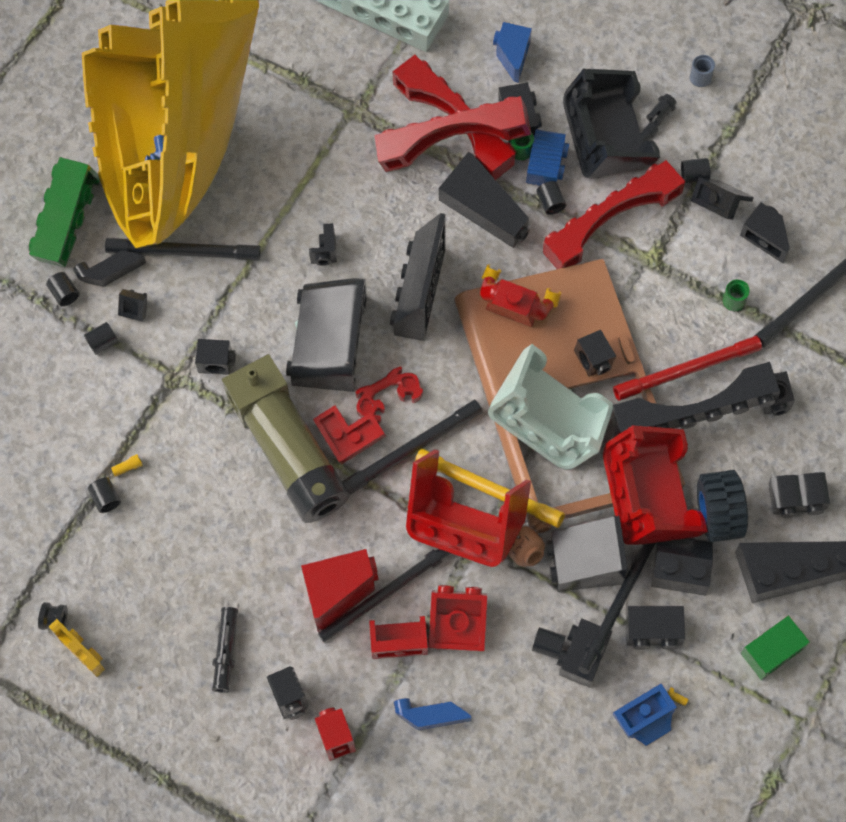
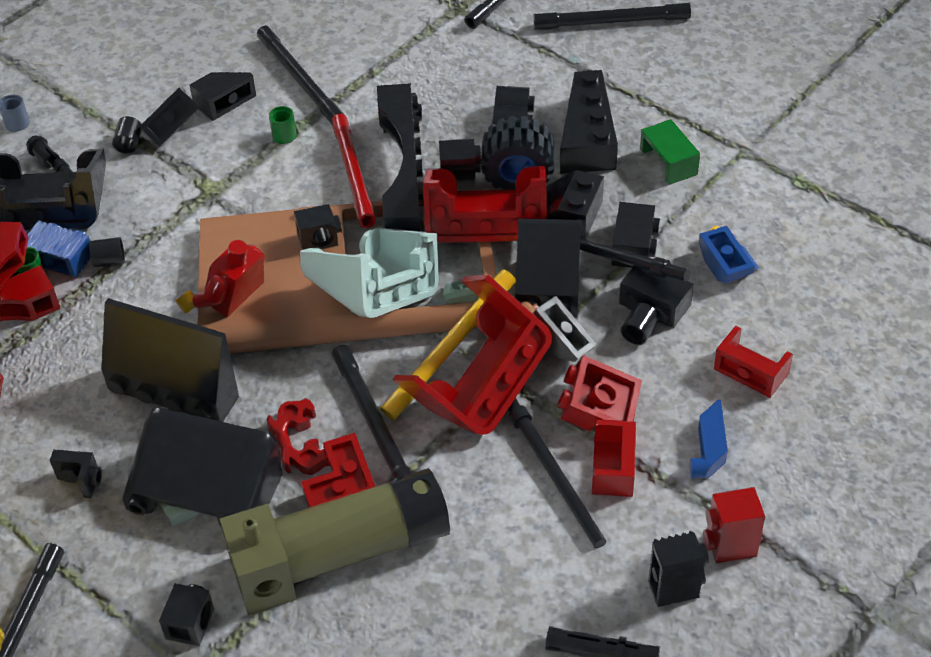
camera: 80 degrees left, 20 degrees down
(339, 585) = (548, 503): red slope -> none
(483, 201) = (76, 313): black slope -> none
(517, 579) = (568, 336): none -> dark grey slope
(521, 743) = (750, 367): none -> red panel
(554, 488) = (458, 293): none -> sand green slope
(657, 185) = (172, 243): red arch -> none
(707, 452) = (461, 158): none -> black brick

